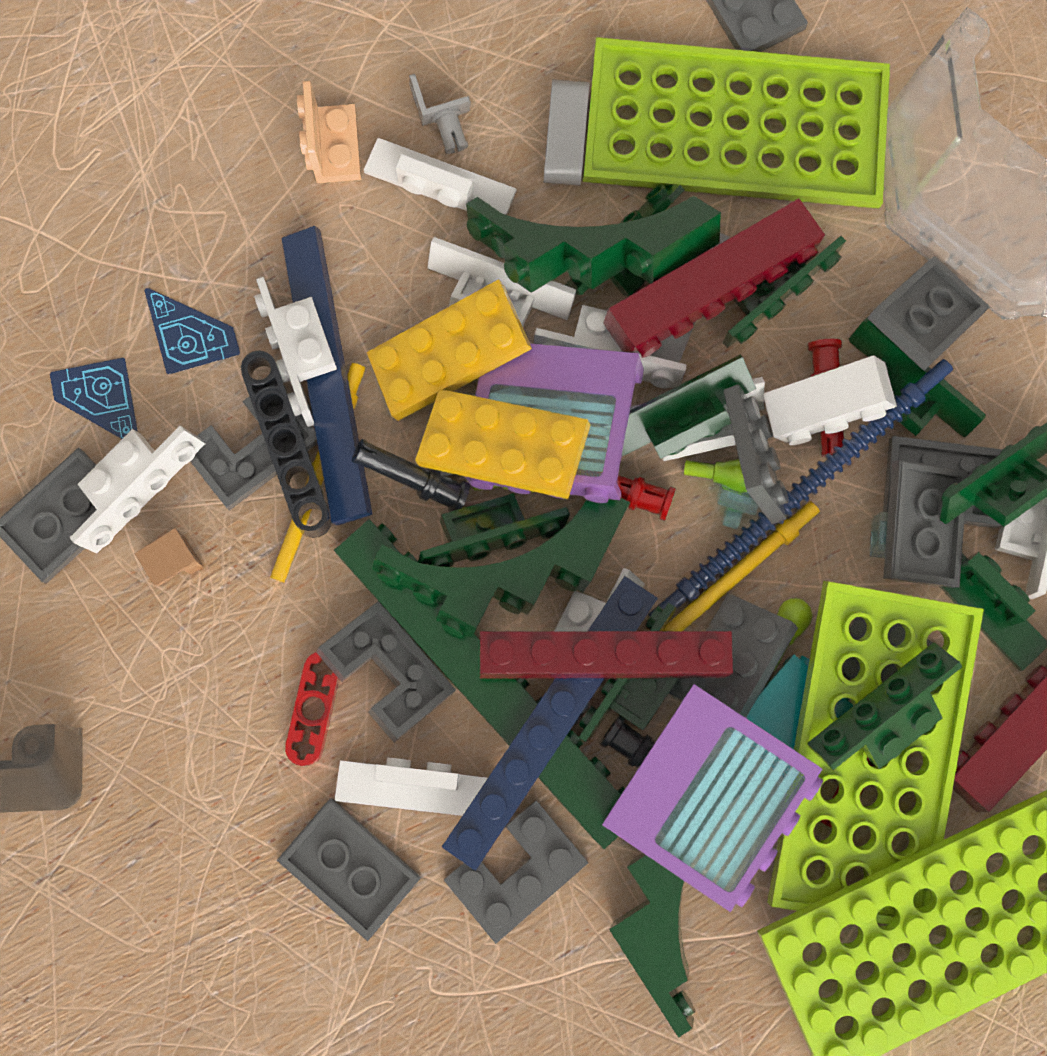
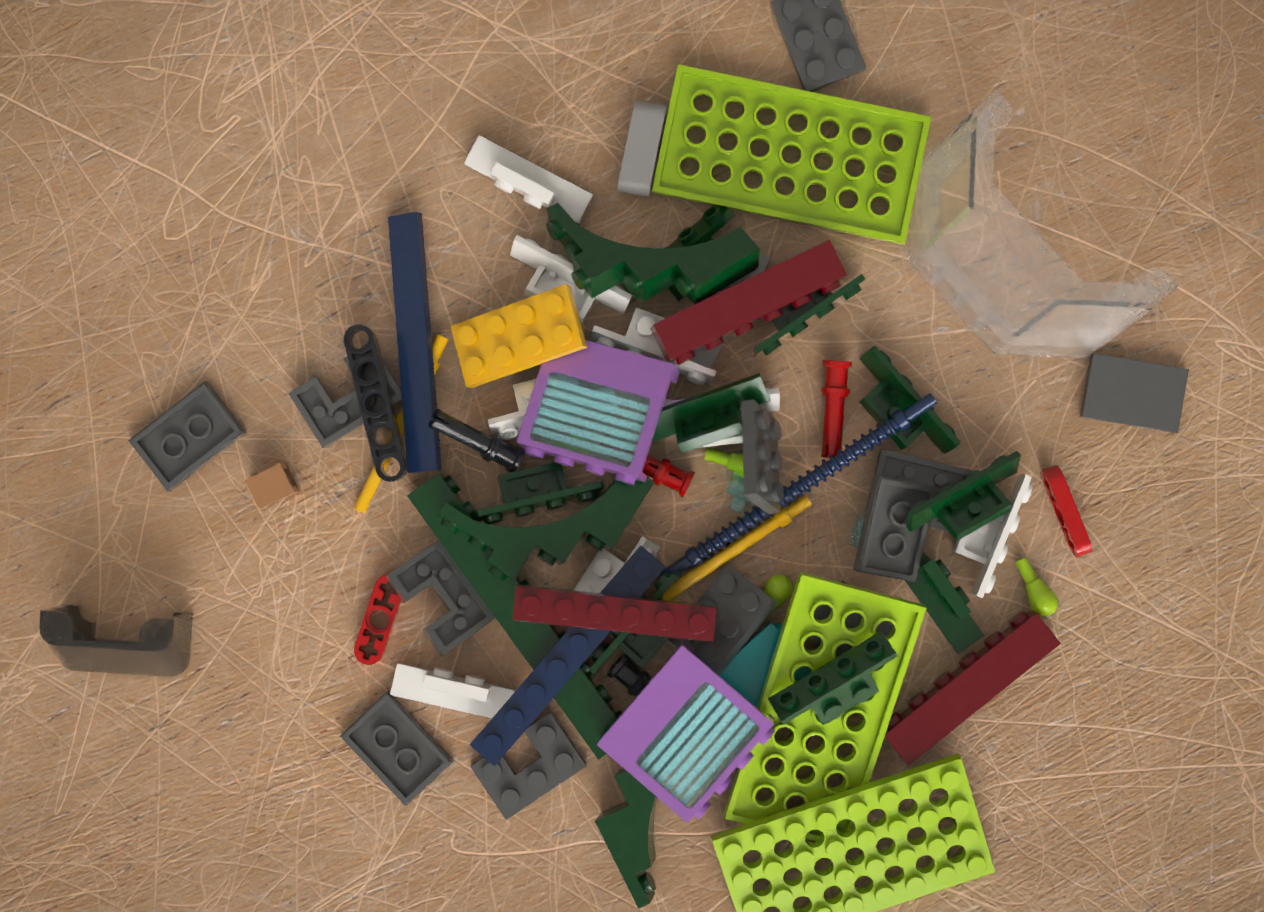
camera: 10 degrees right, 10 degrees up
(98, 394) = (225, 336): dark blue sticker -> none
(128, 481) = (244, 416): white bracket -> none
(187, 335) = (302, 292): dark blue sticker -> none
(301, 343) = (396, 317): white bracket -> none
(329, 138) = (437, 132): light nougat bracket -> none
(444, 115) = (539, 125): light grey bracket -> none
(503, 443) = (553, 426): yellow plate -> none
(830, 401) = (831, 418): white brick -> none
(928, 312) = (927, 347): dark grey plate -> none

